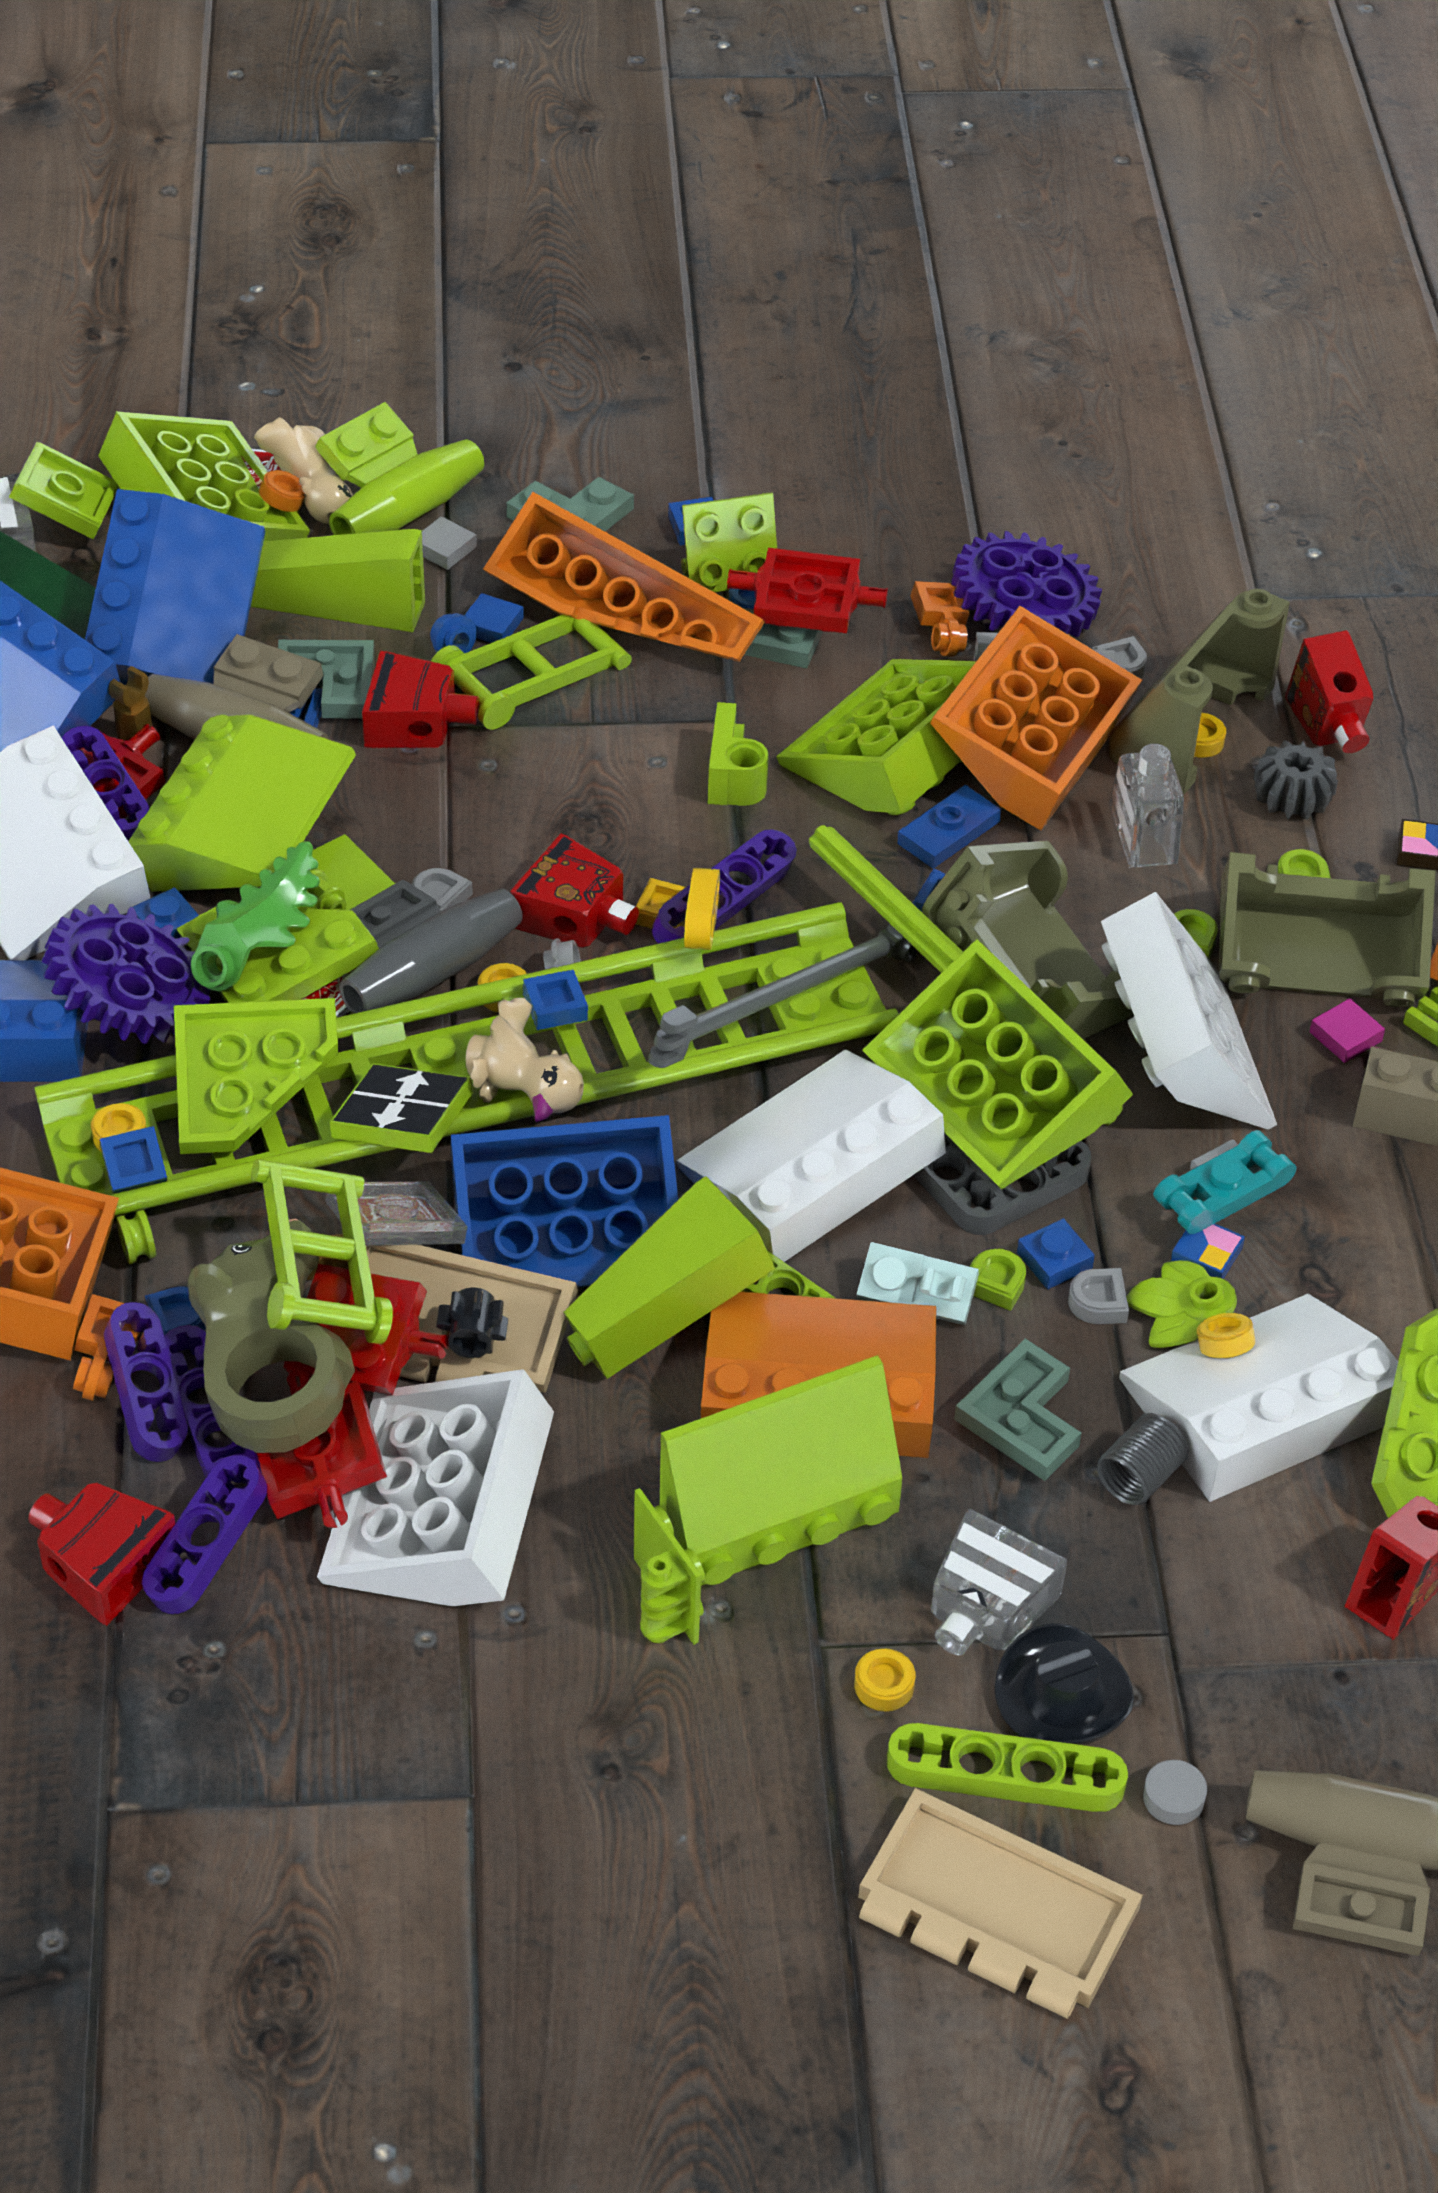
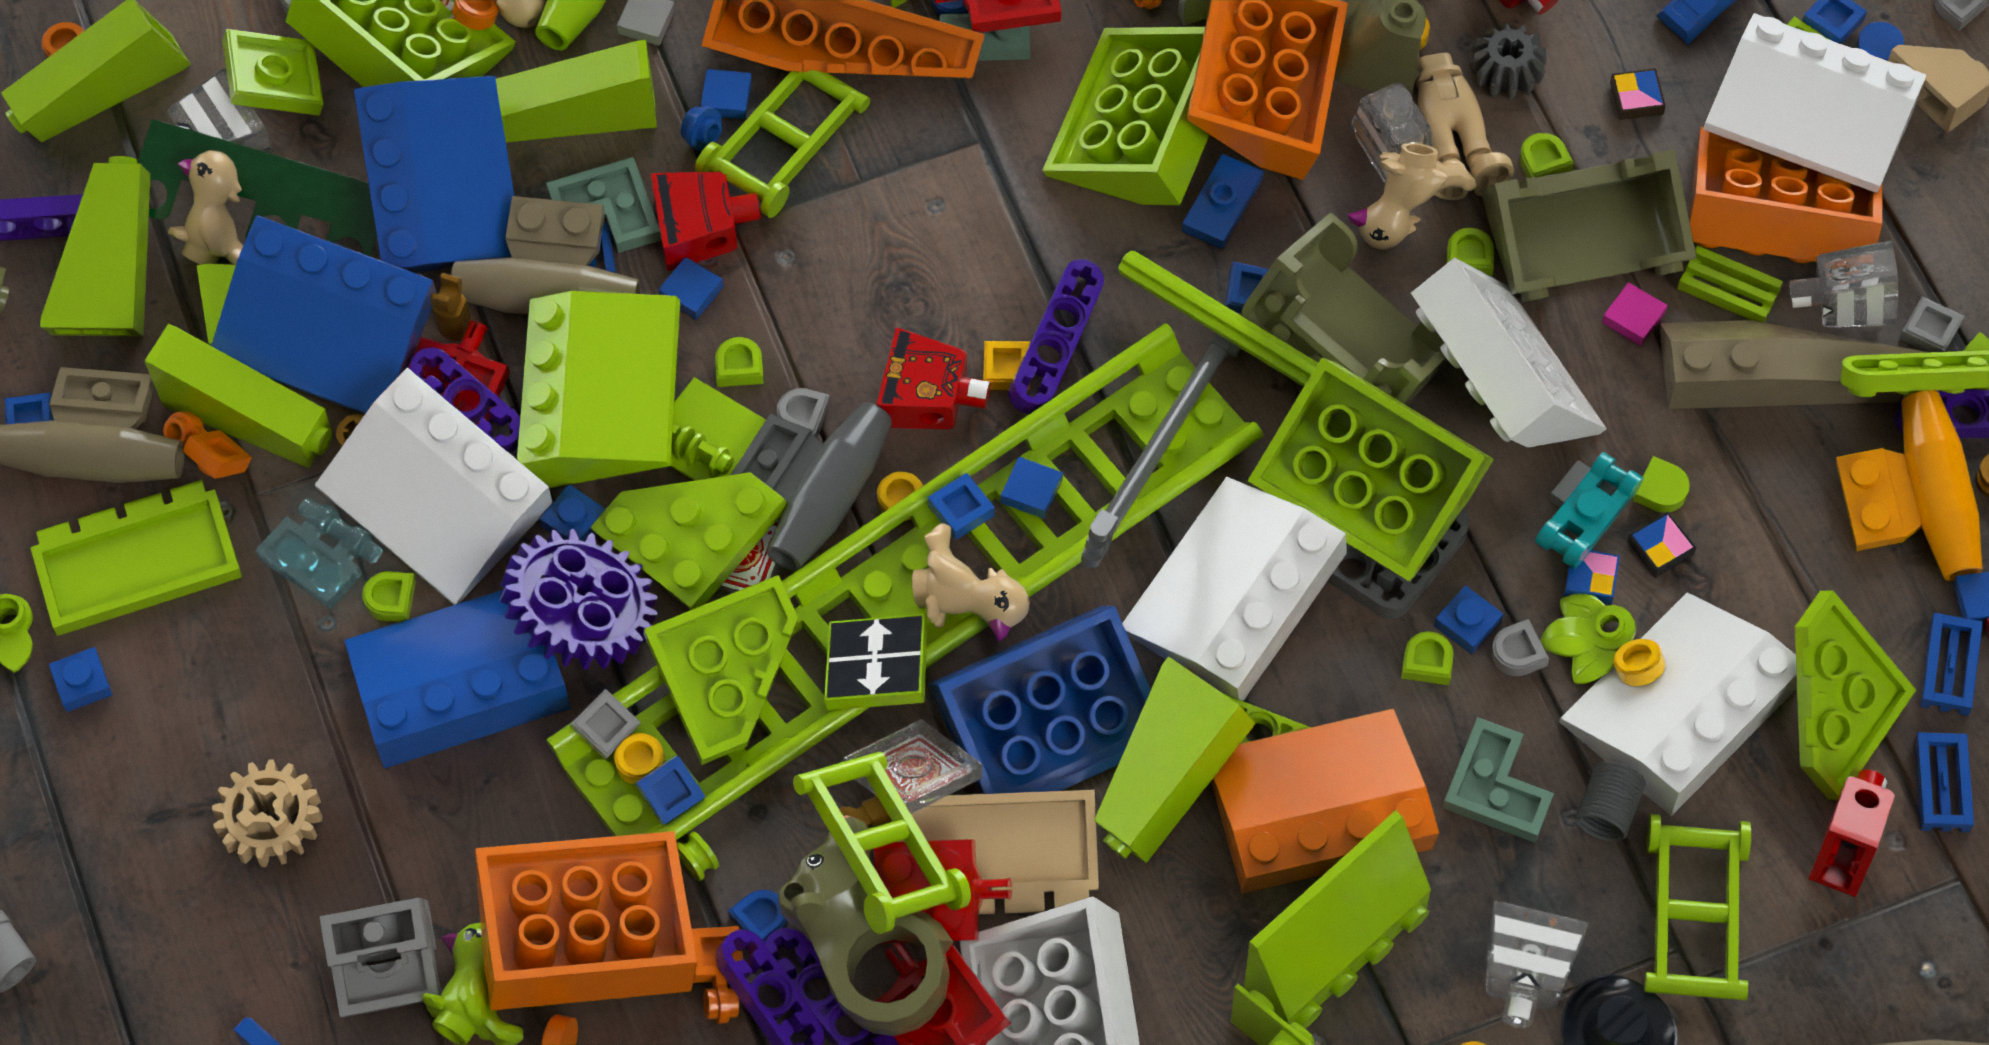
camera: 15 degrees left, 15 degrees up
(97, 1085) = (605, 724): none -> light grey tile
(258, 919) = (672, 508): bright green plant -> none
(380, 763) = (693, 286): none -> blue tile
(395, 836) = (738, 363): none -> lime tile
(472, 1322) = (1024, 857): black gear -> none
(561, 954) = (942, 454): light grey plate -> none
(636, 1006) = (1031, 487): none -> blue tile
(702, 908) = (1056, 376): yellow beam -> none
(736, 763) = (1007, 188): lime plate -> none
(917, 1279) = (1368, 688): light aqua plate -> none
(1143, 843) = (1411, 181): none -> tan animal
(1182, 1515) = (1738, 846): none -> lime piece
(1212, 801) = (1452, 106): none -> tan piece
(1296, 1242) = (1661, 544): none -> tile
(1317, 1190) = (1663, 487): none -> lime tile

